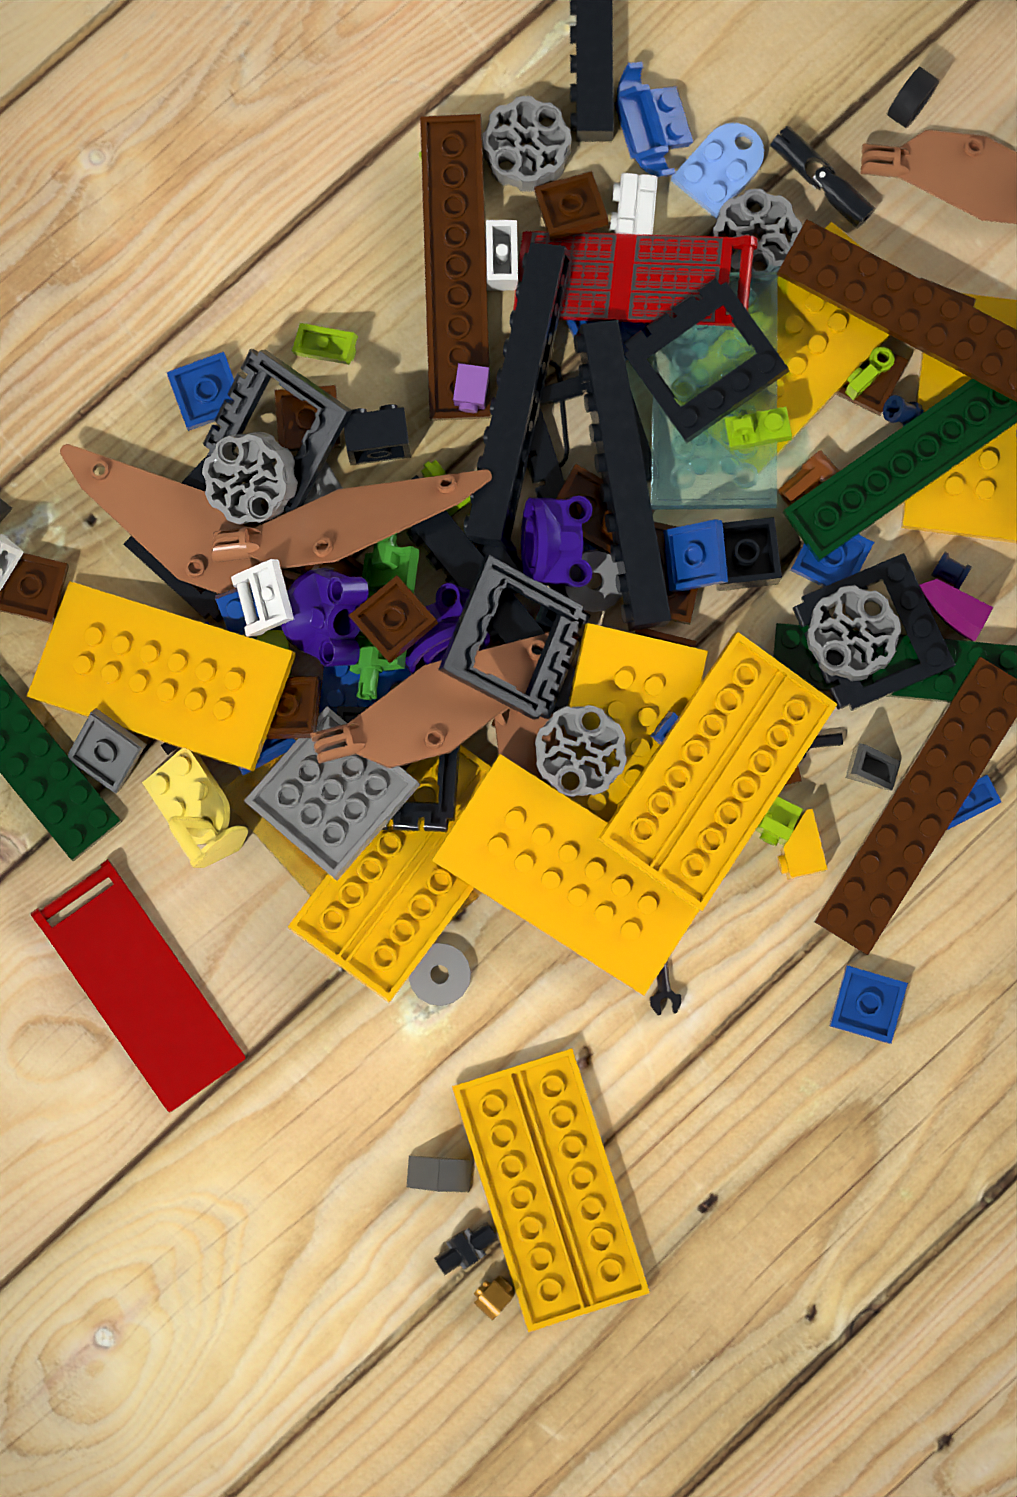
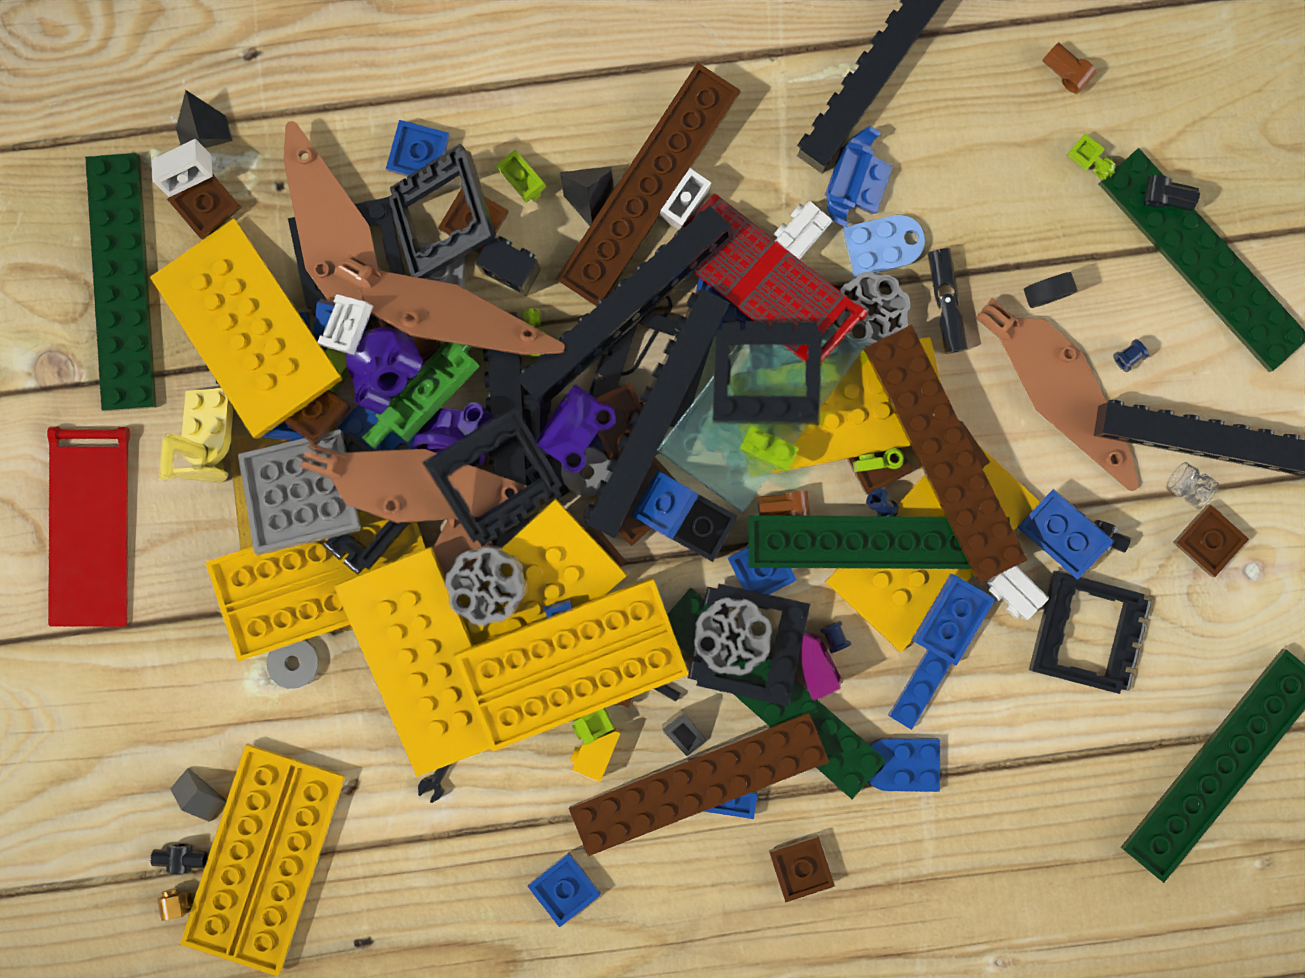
camera: 30 degrees right, 5 degrees up
(106, 750) = (174, 352): dark grey tile -> none
(247, 507) = (411, 249): light grey connector -> none
(393, 619) = (421, 403): reddish brown plate -> none
(399, 313) = (587, 190): none -> black slope
(471, 387) = (596, 278): medium lavender brick -> none
(505, 142) = (737, 124): light grey connector -> none
(571, 206) = (758, 199): reddish brown plate -> none

